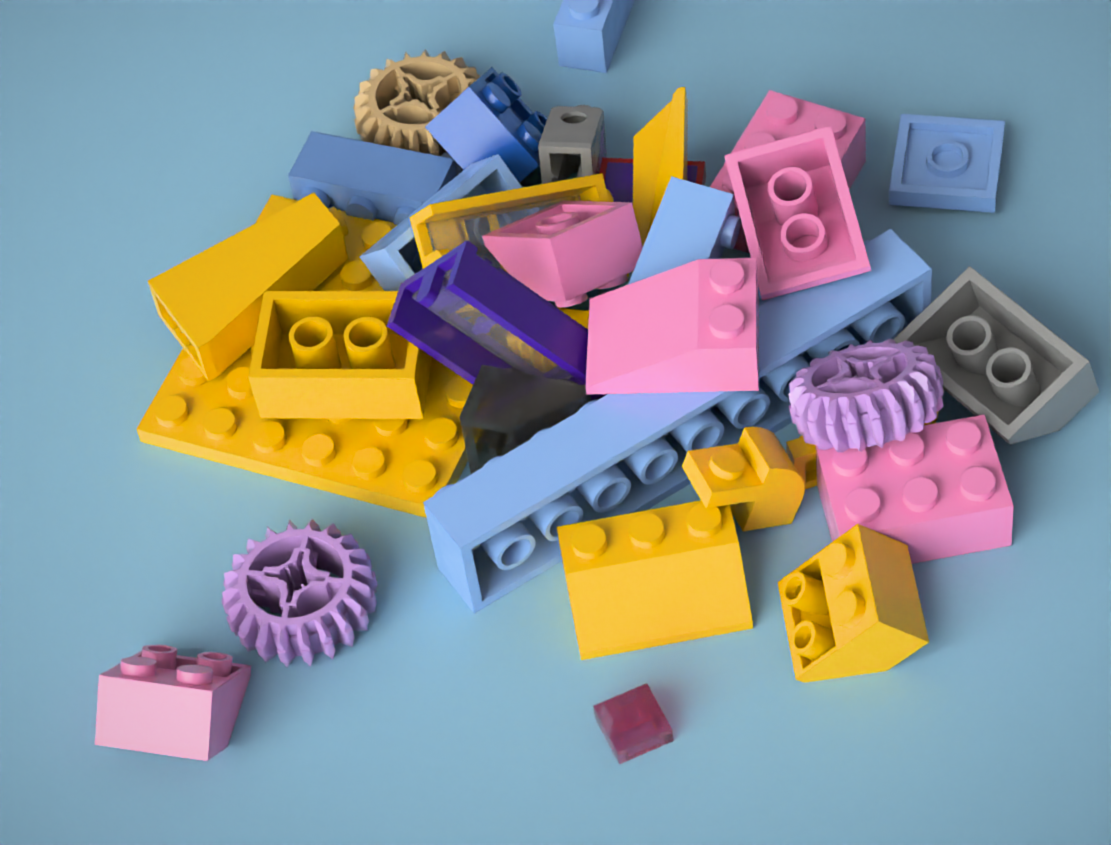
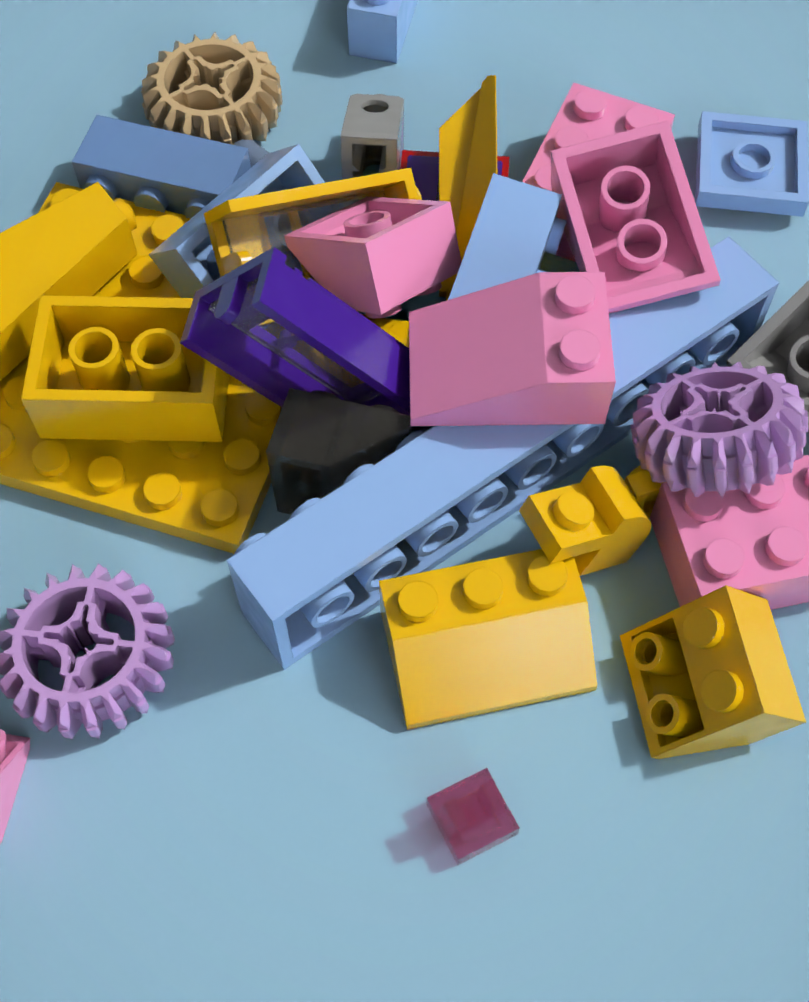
camera: 10 degrees left, 10 degrees up
(489, 122) = (286, 110): blue slope -> none

